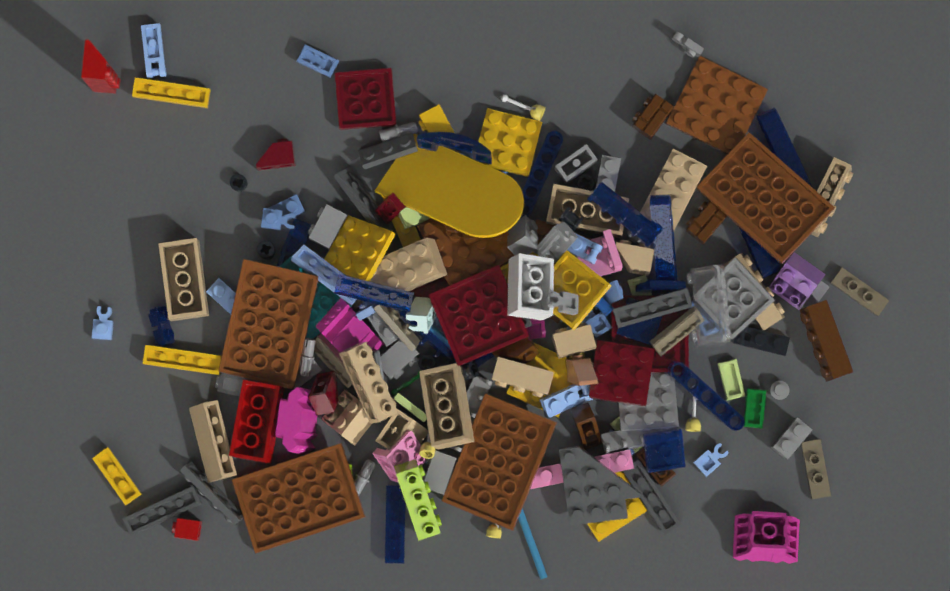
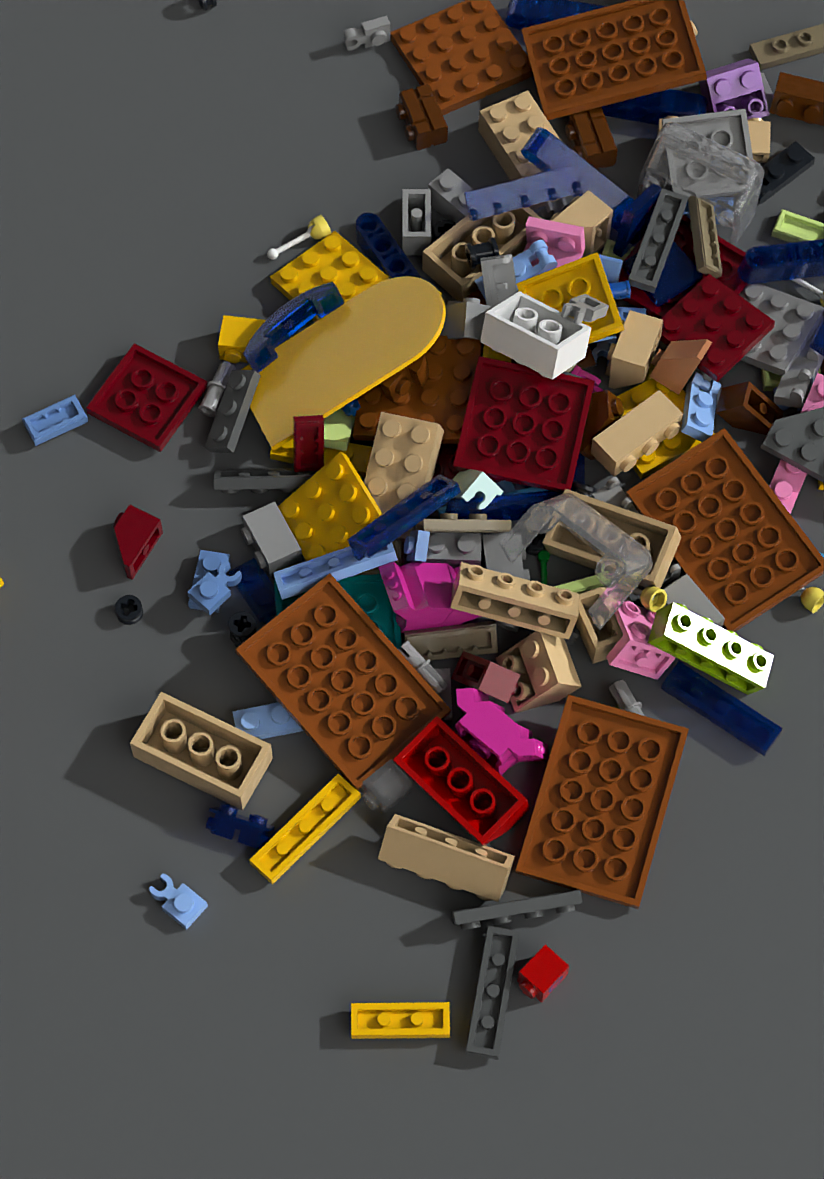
camera: 55 degrees left, 20 degrees down
(432, 403) = (623, 559): none -> clear windscreen

